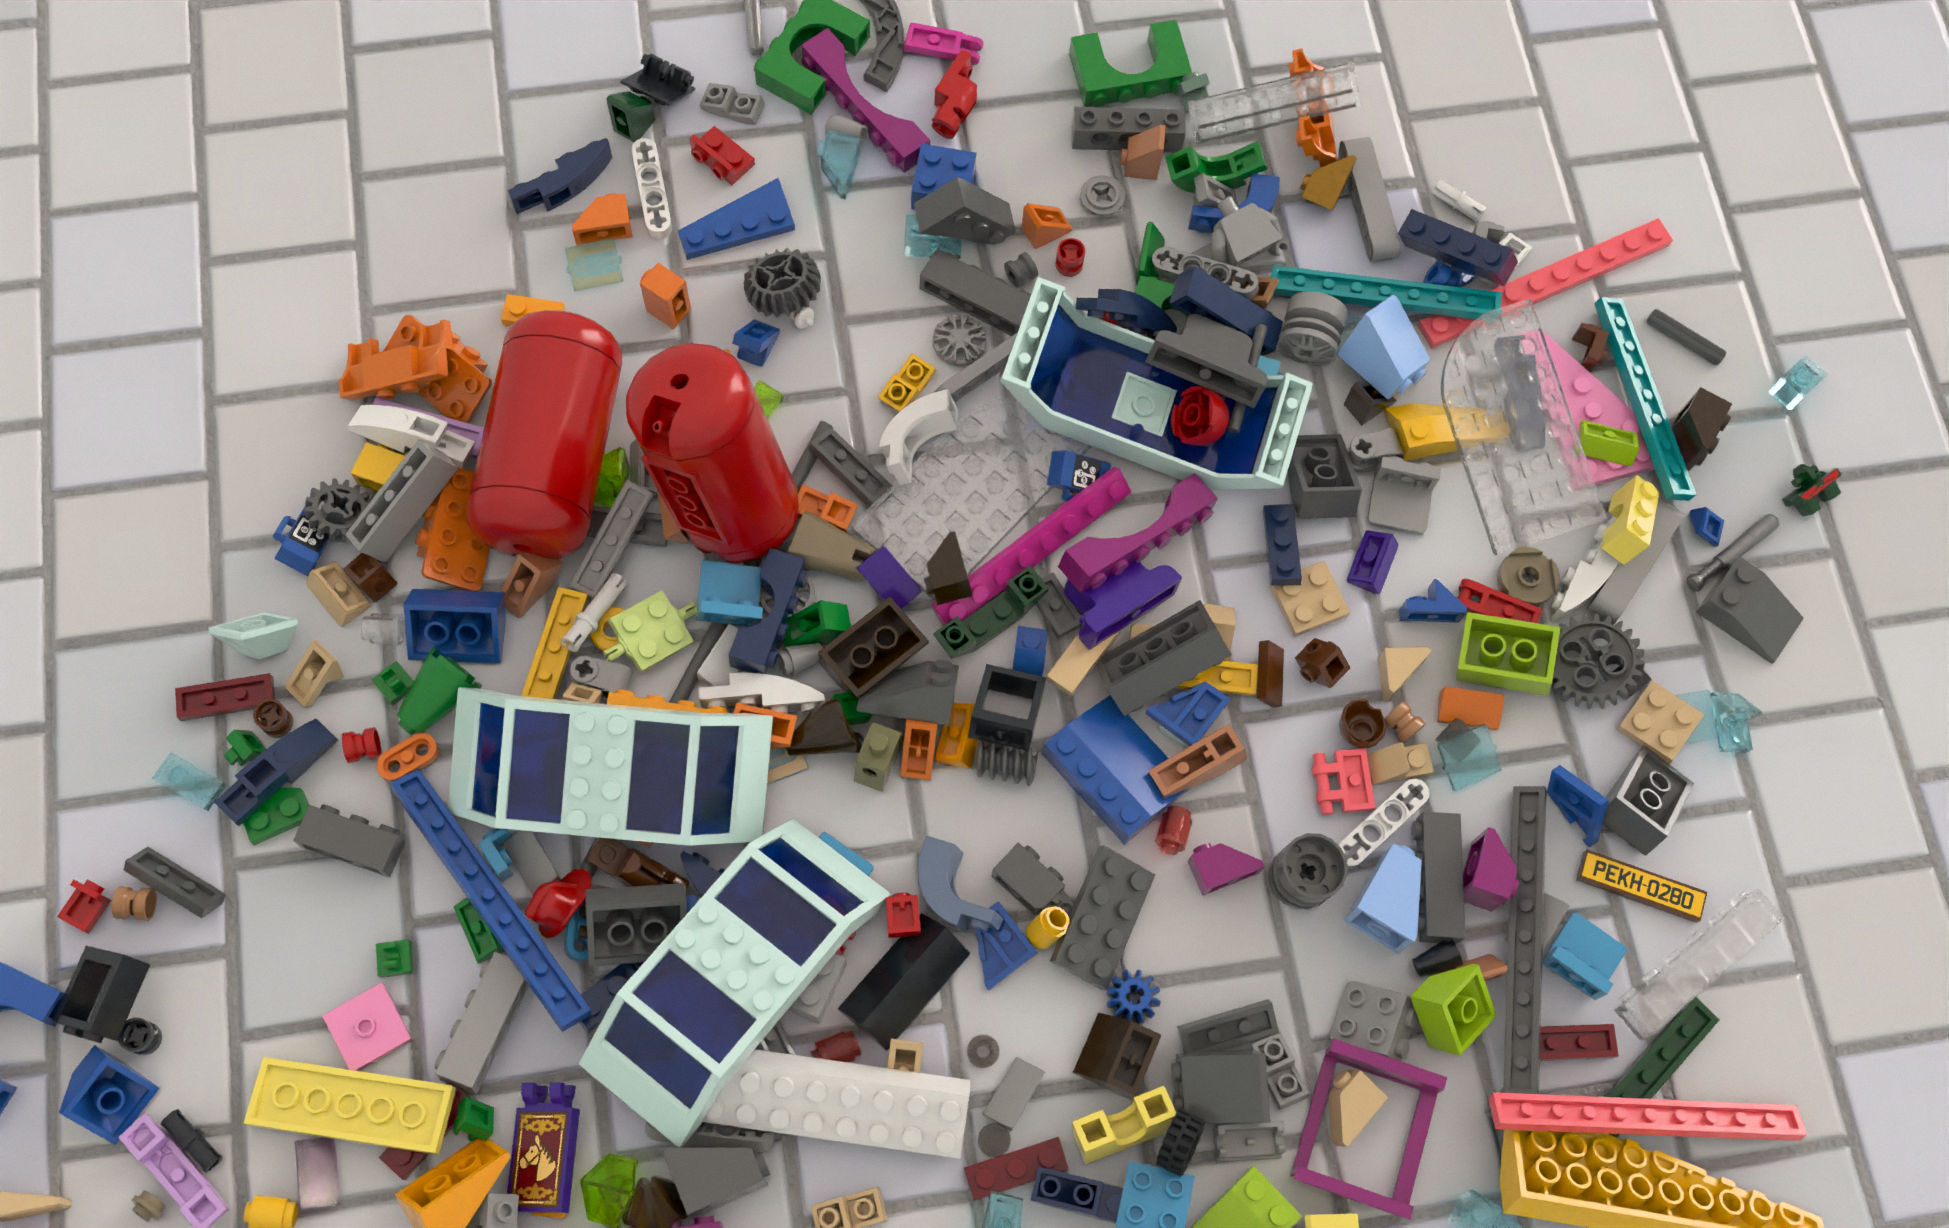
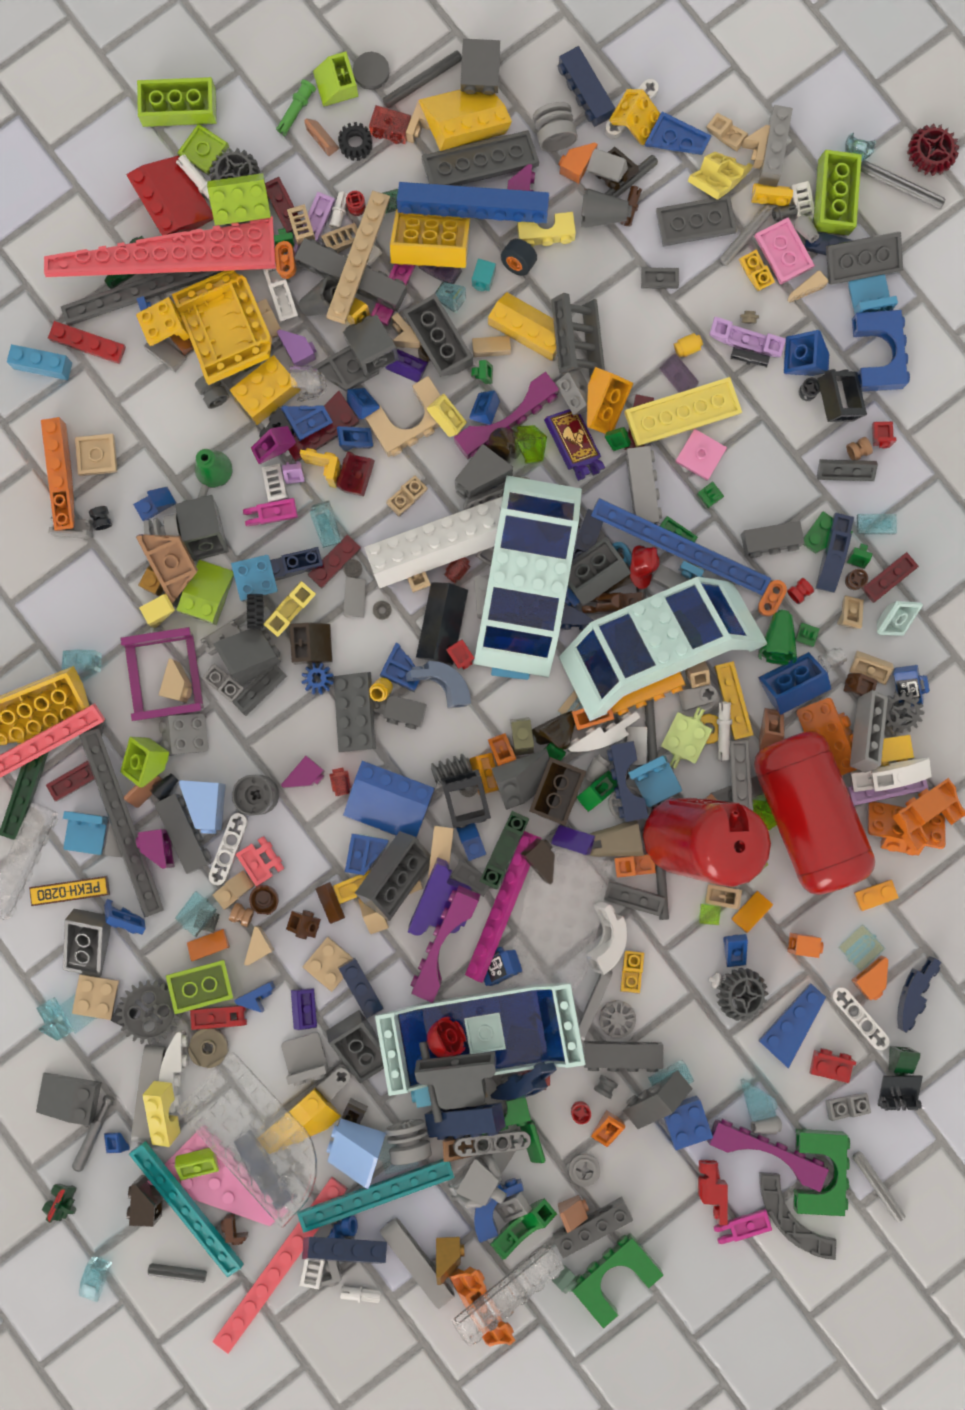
camera: 160 degrees right, 15 degrees up
(1199, 762) = (345, 825): nougat slope -> none

